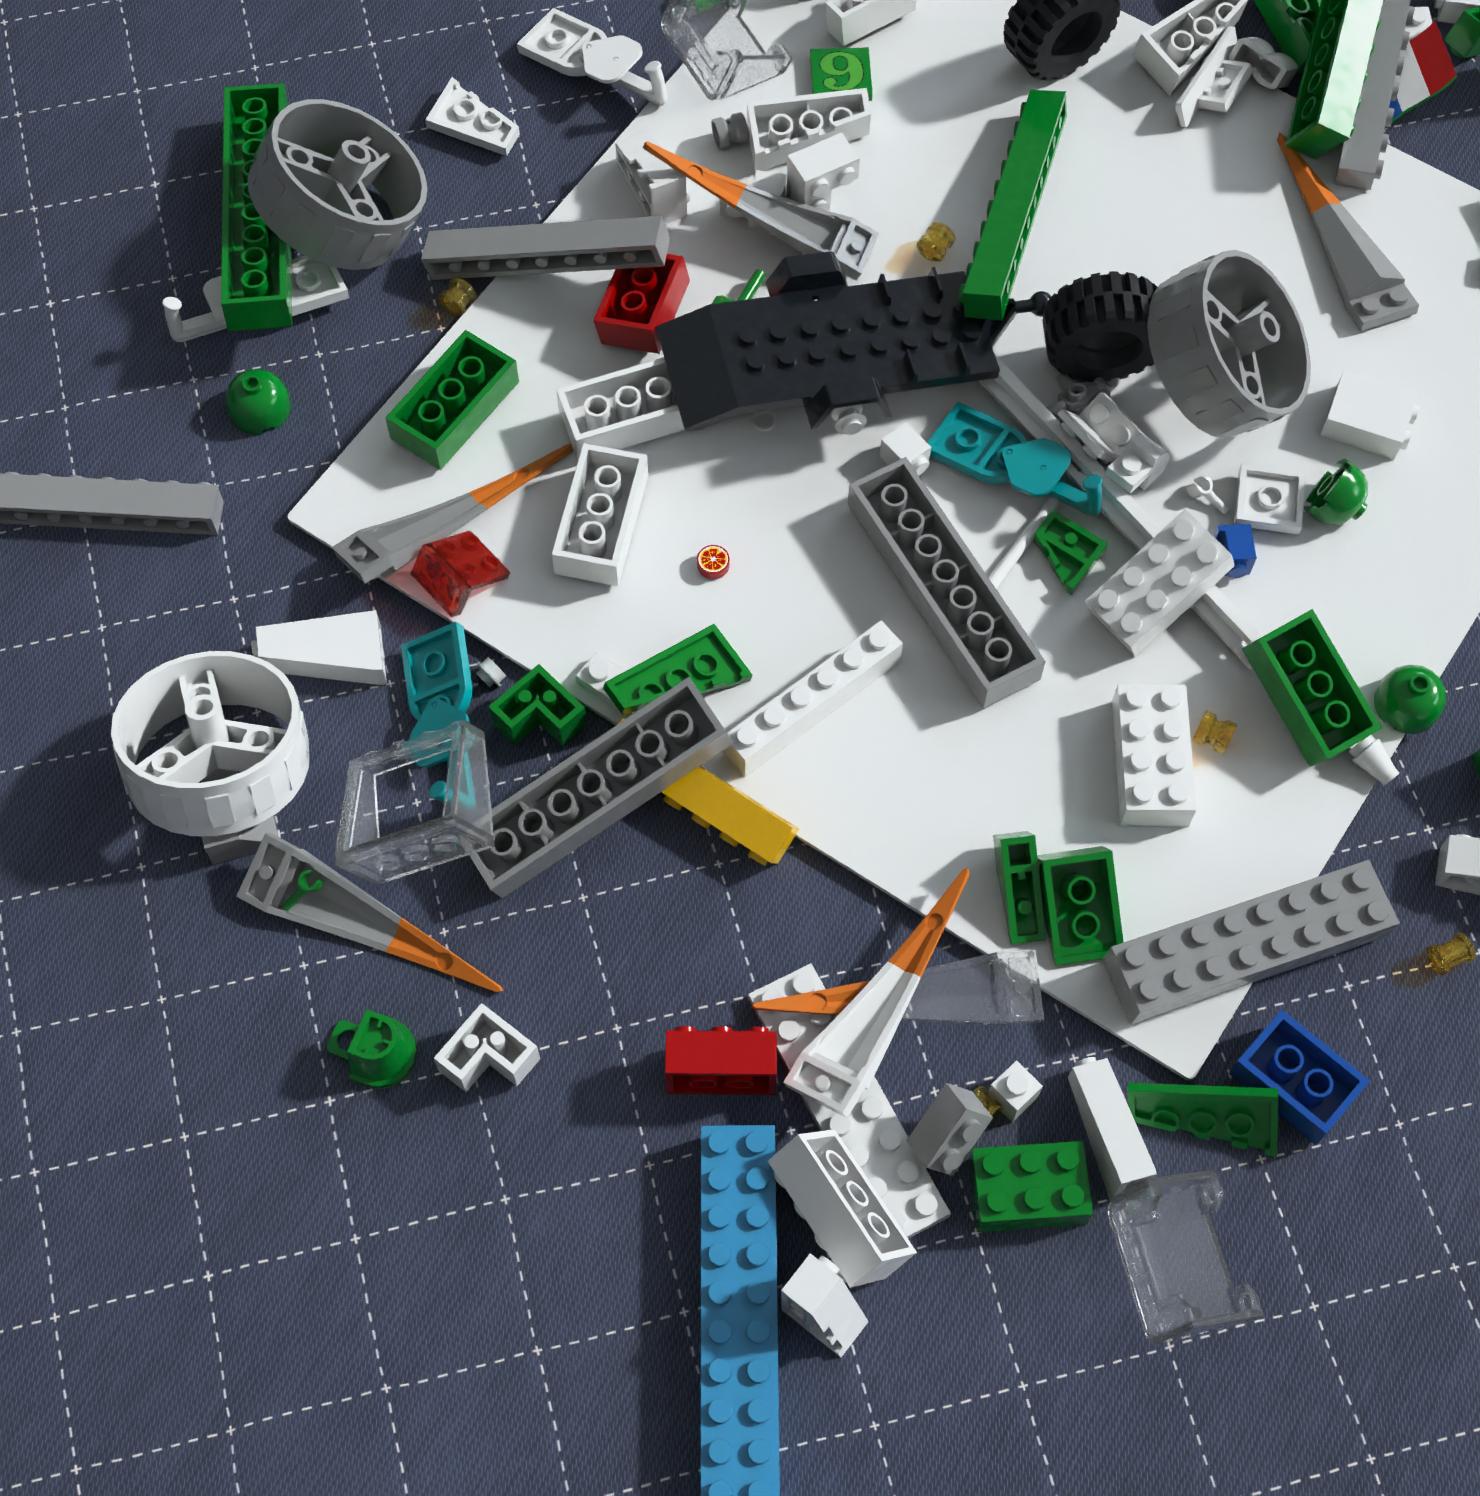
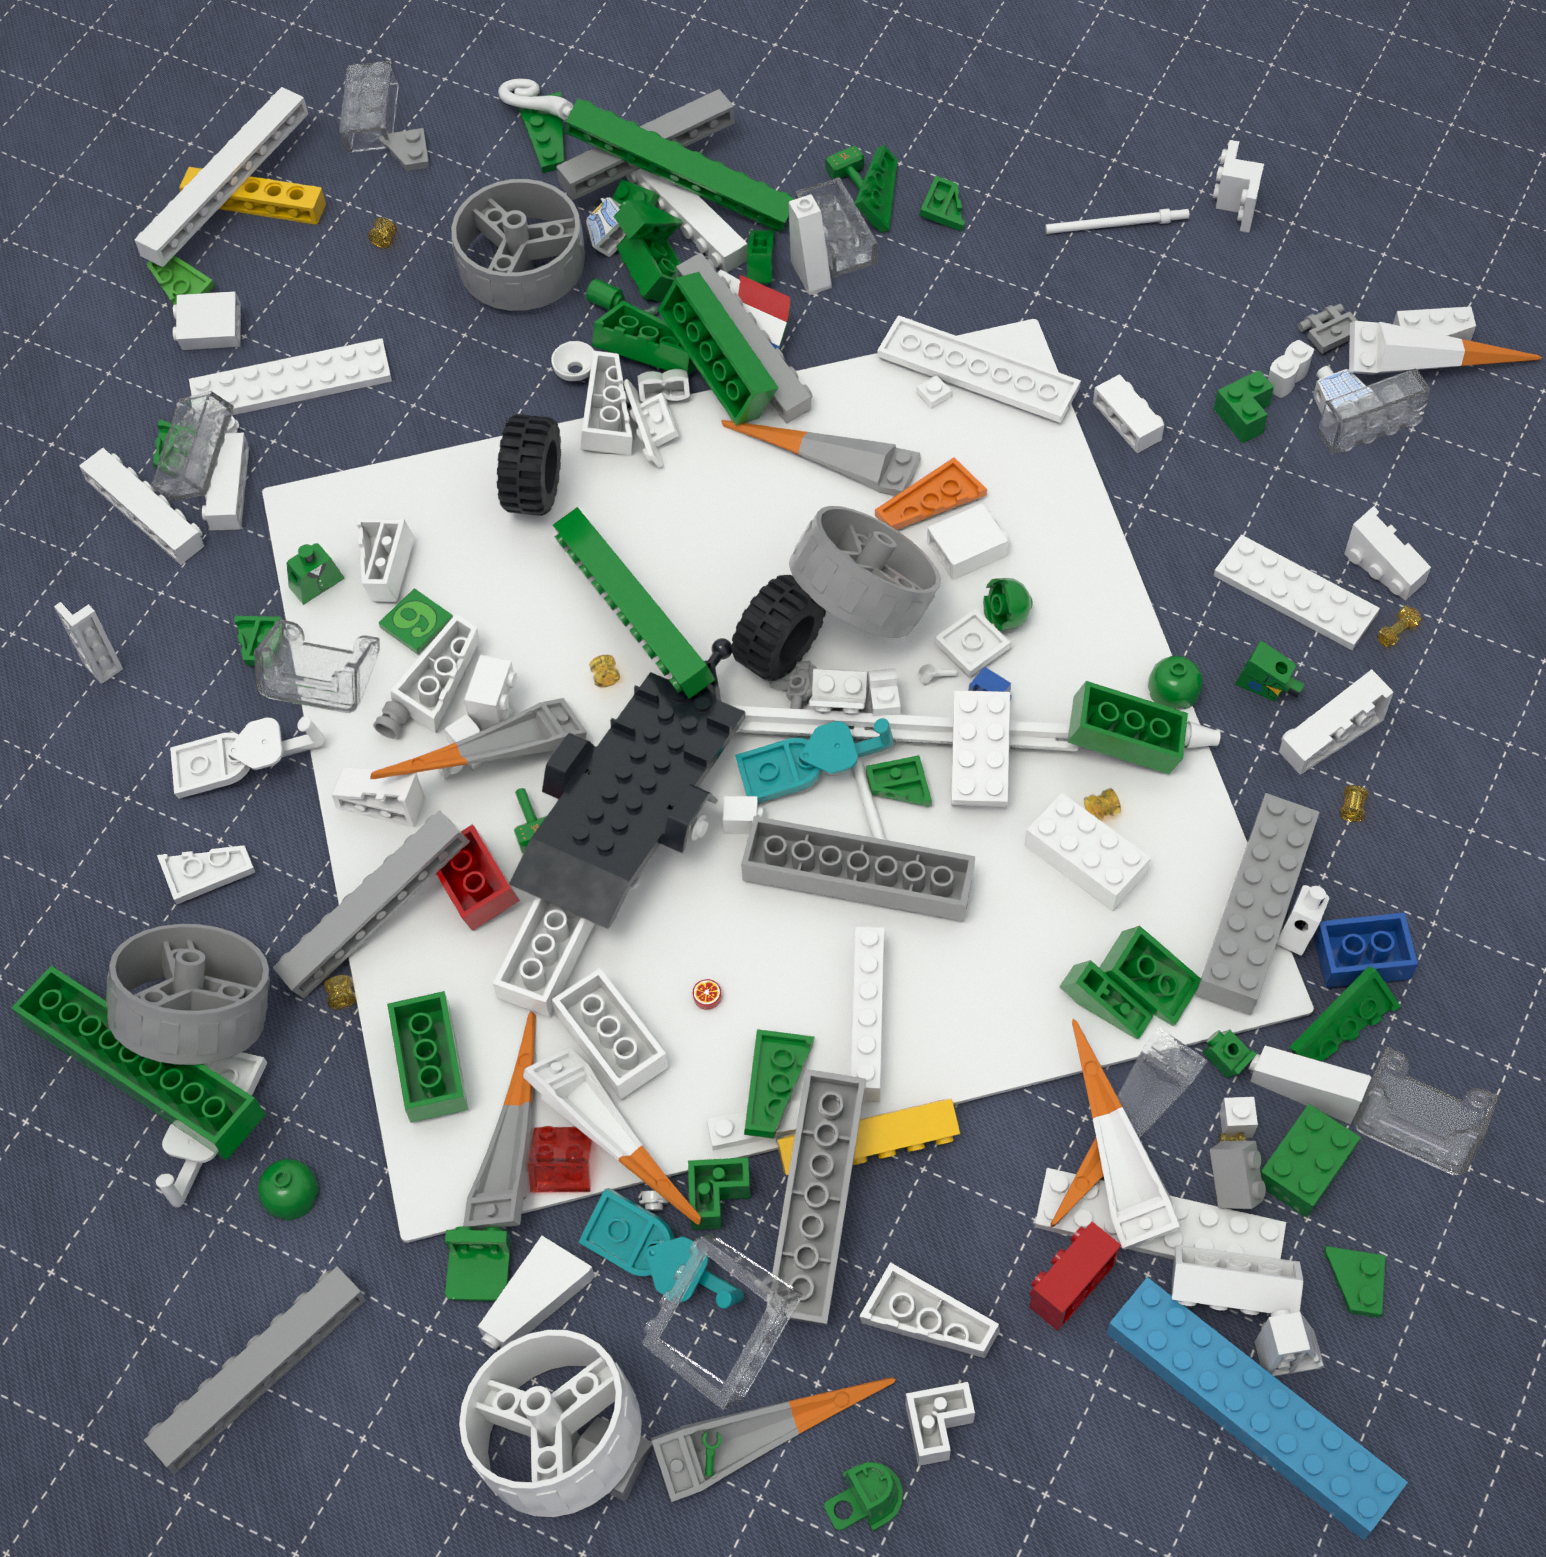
camera: 45 degrees left, 5 degrees down
(316, 585) = (477, 1263): none -> green bracket
(522, 536) = (578, 1096): none -> white plate
(576, 960) = (925, 1313): none -> white wedge
(955, 1324) = (1359, 1278): none -> green wing
(1061, 1043) = (1218, 1053): none -> green brick
(1283, 990) = (1309, 907): none -> white torso
(1393, 351) = (933, 494): none -> orange wing

